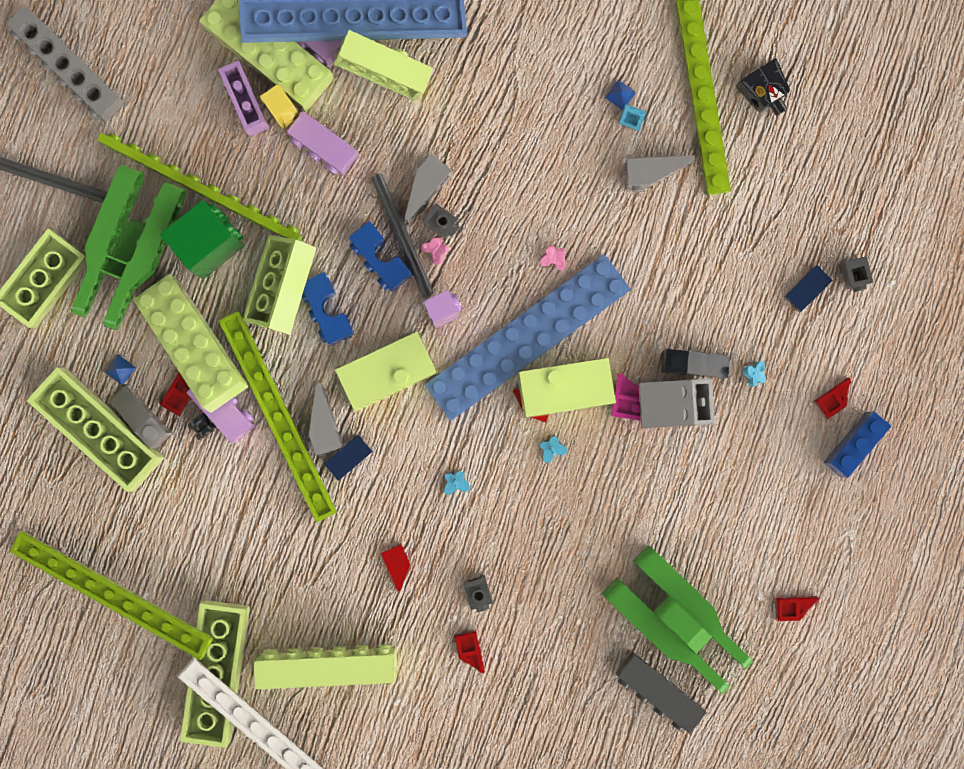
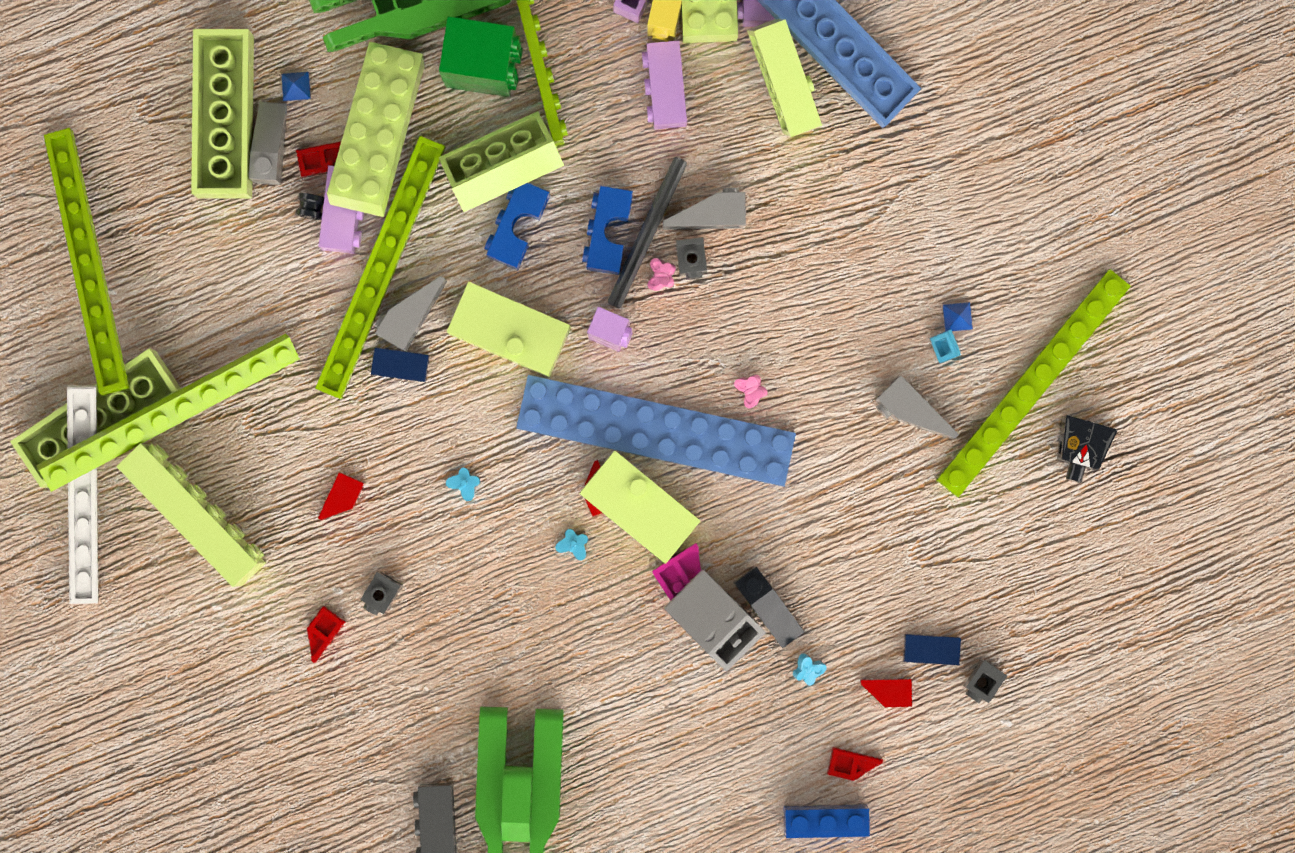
camera: 50 degrees right, 0 degrees up
(249, 628) = (167, 412): none -> plate
(812, 336) = (890, 691): none -> red tile

